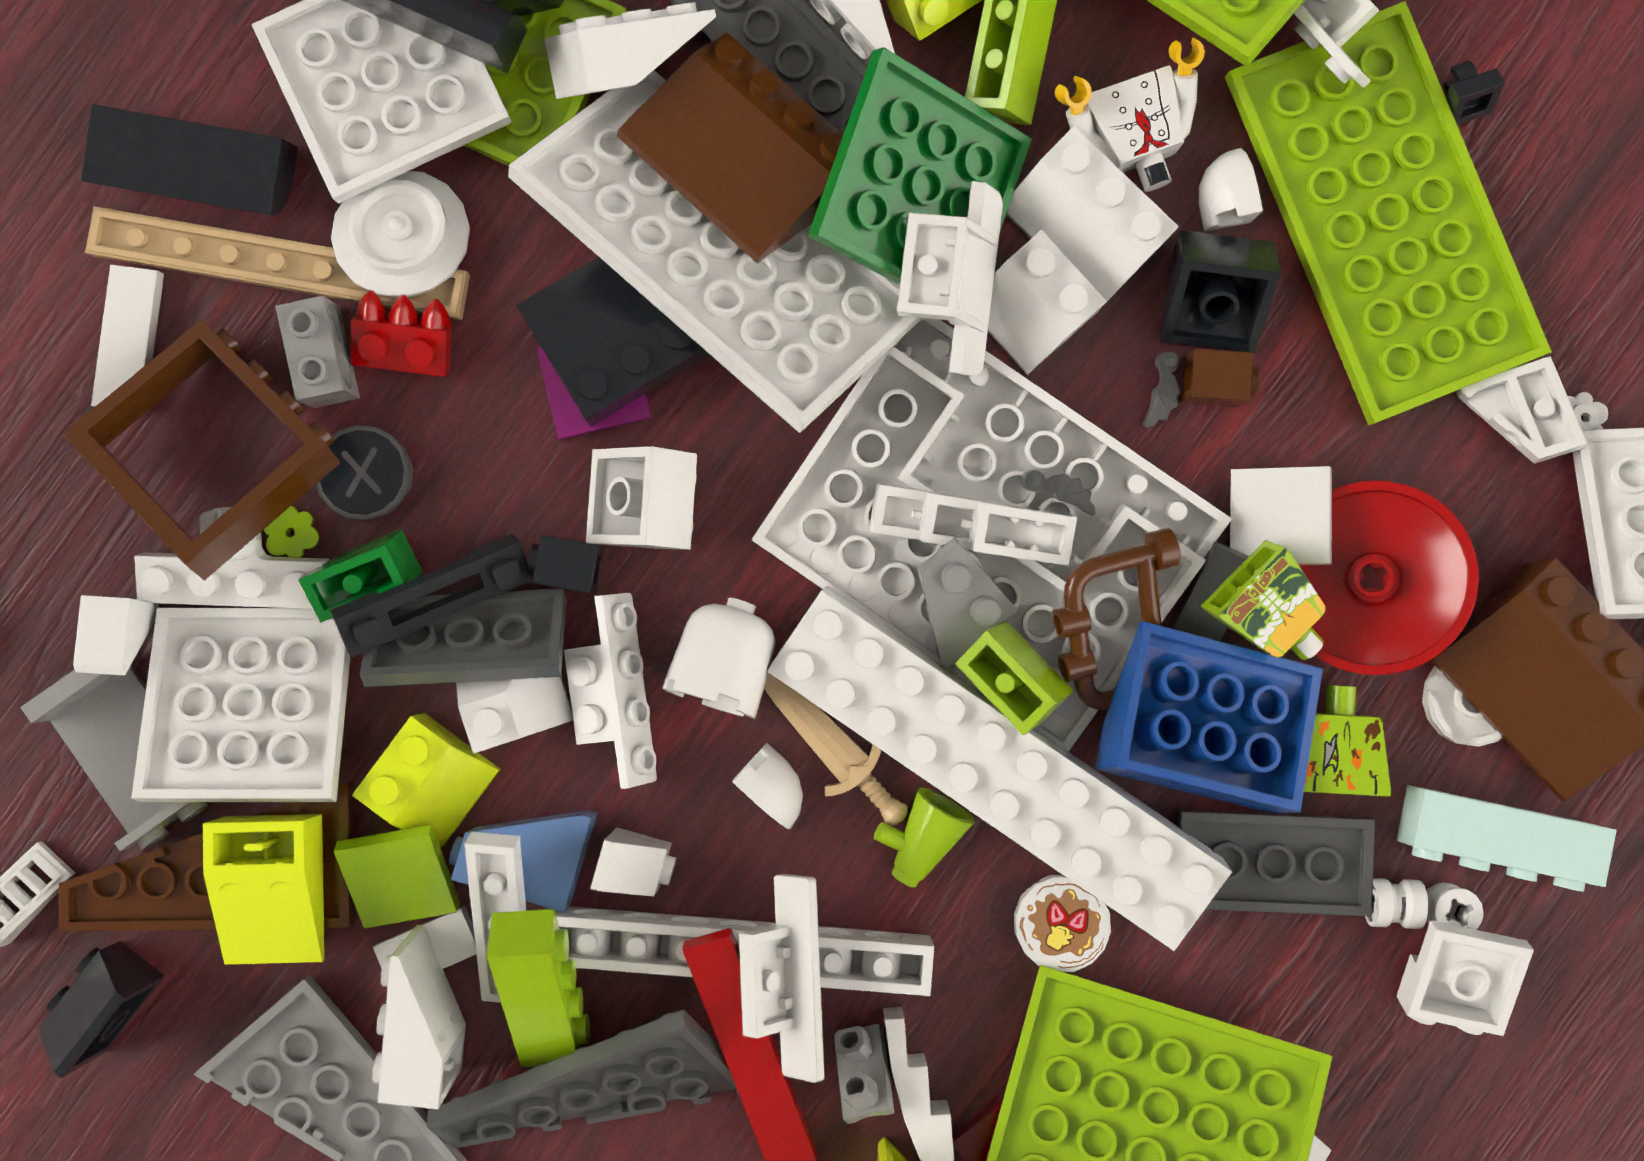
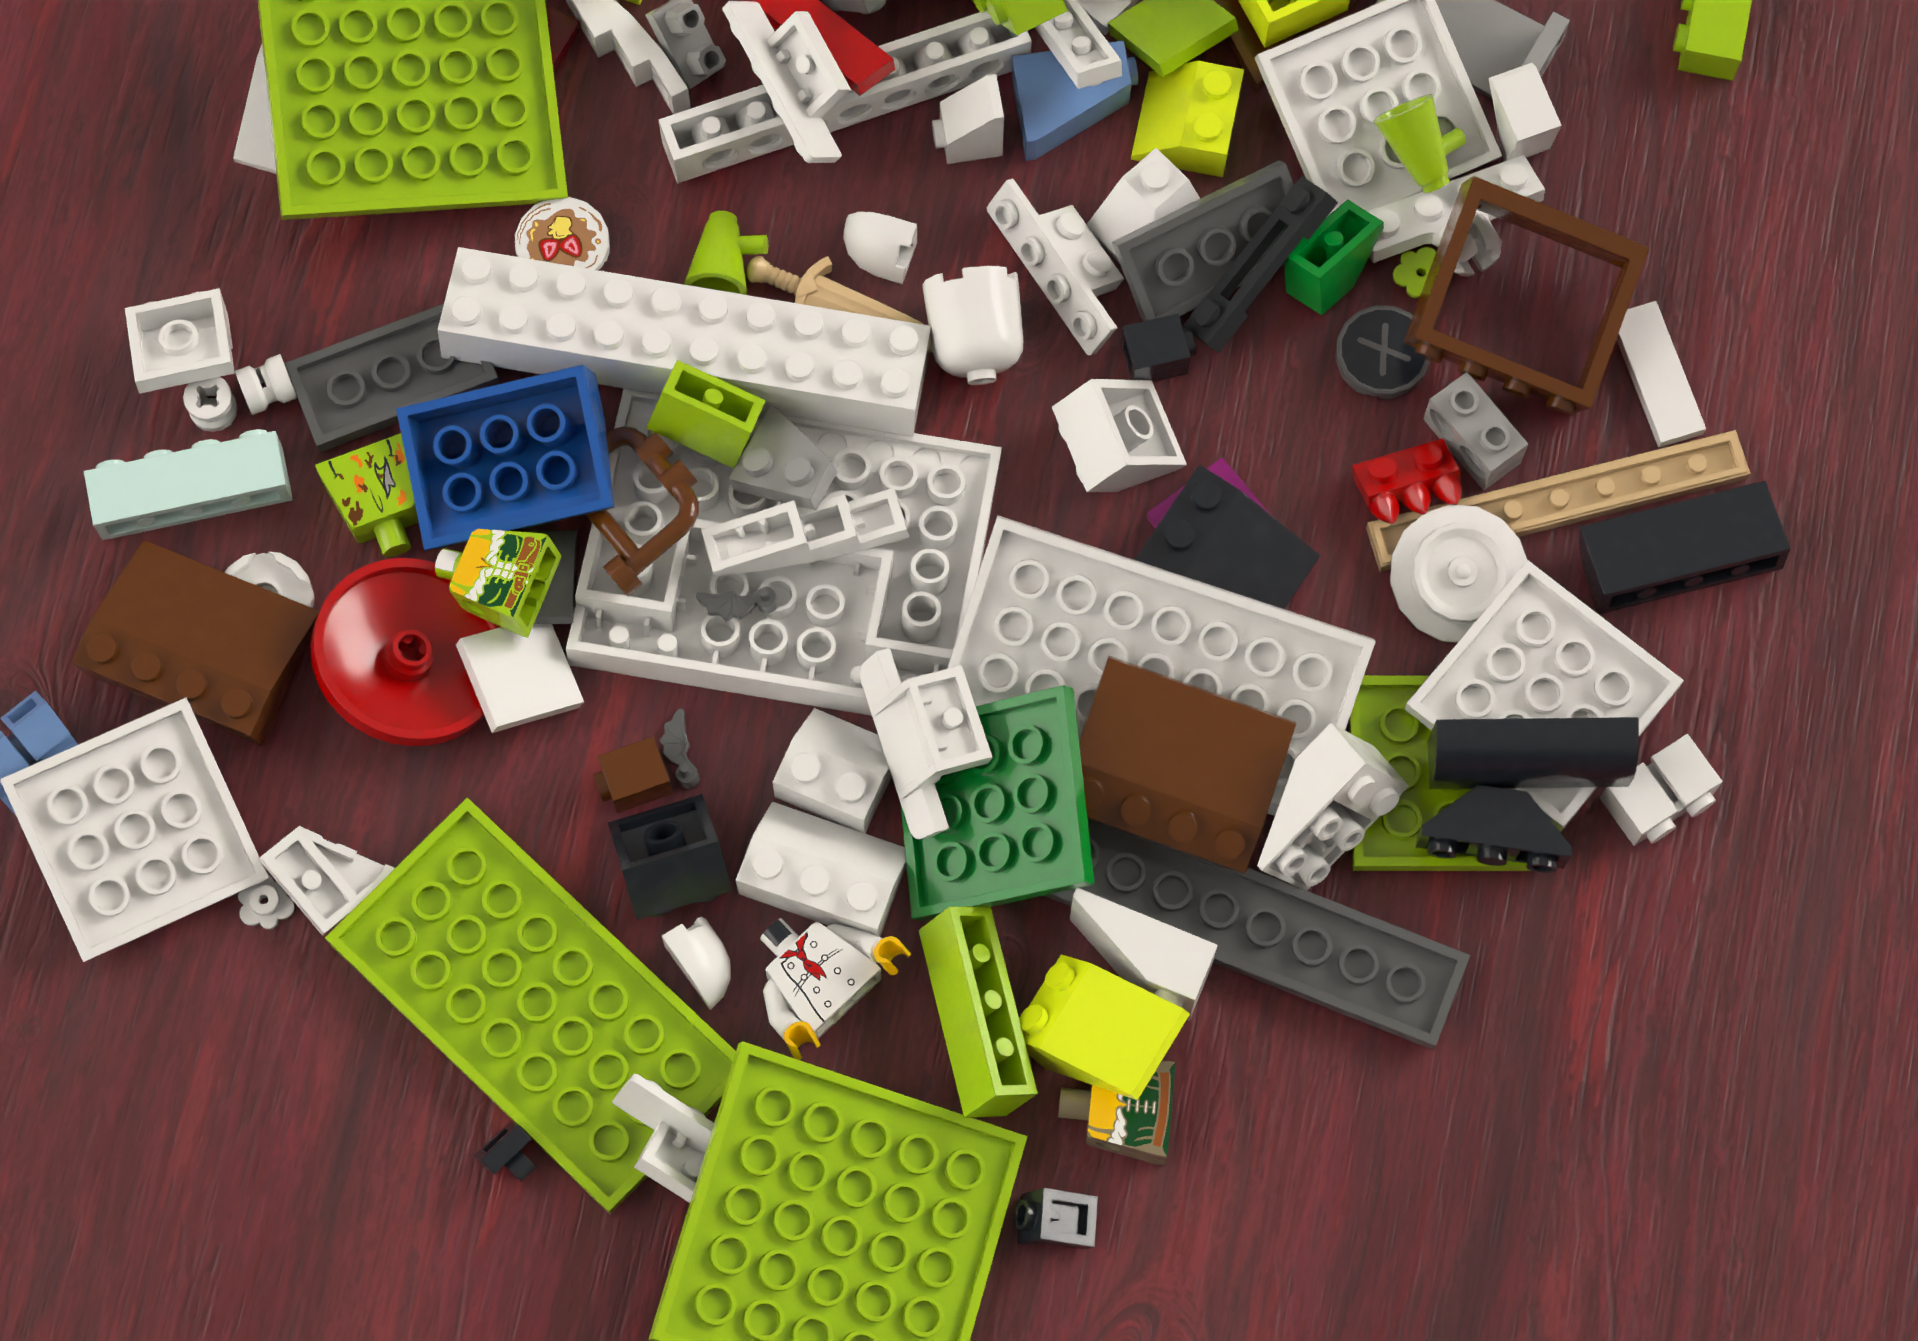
camera: 155 degrees right, 15 degrees down
(223, 650) = (1417, 141): none -> lime piece

